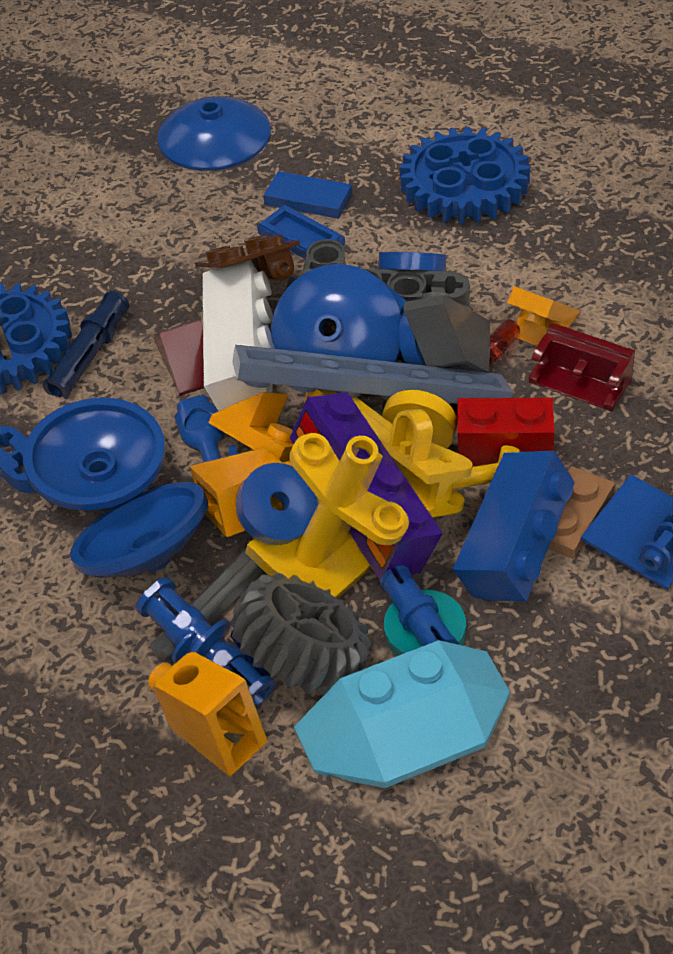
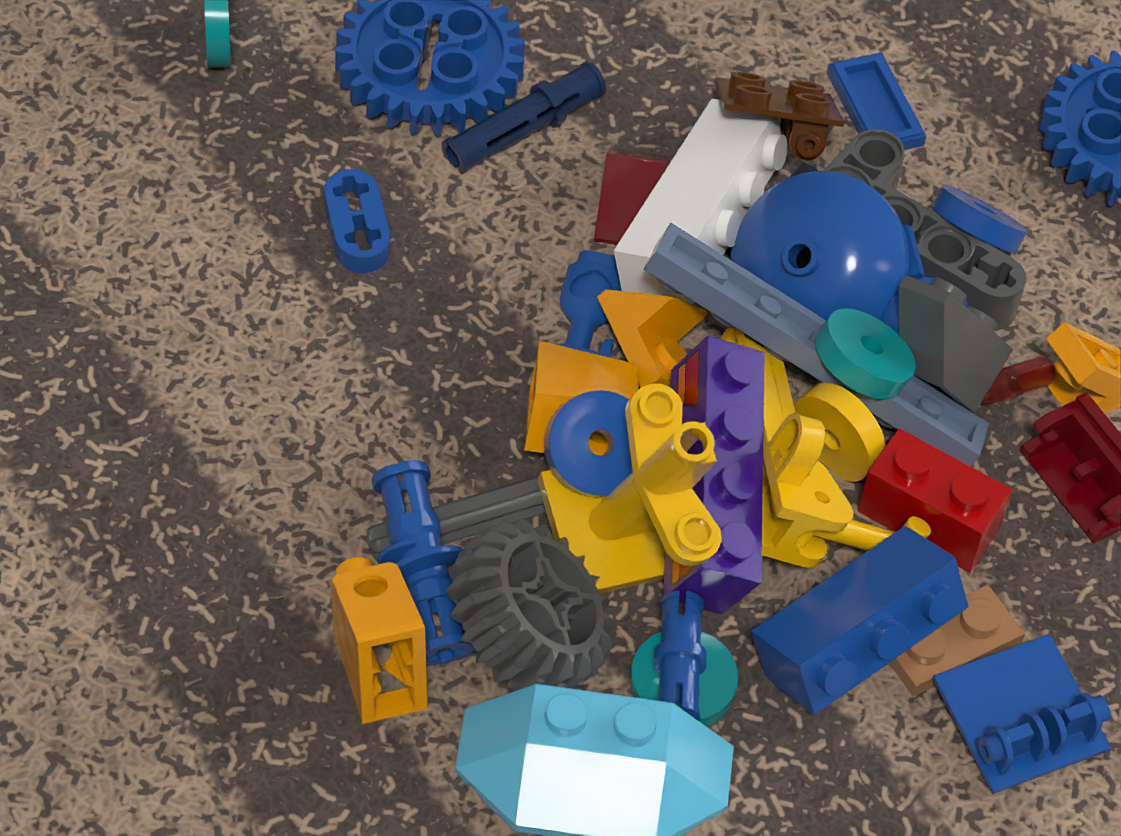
camera: 20 degrees right, 5 degrees up
(93, 437) = (447, 241): blue dish -> none
(141, 532) = (435, 389): blue dish -> none
(308, 194) = (922, 53): blue tile -> none
(407, 364) = (865, 354): none -> teal piece

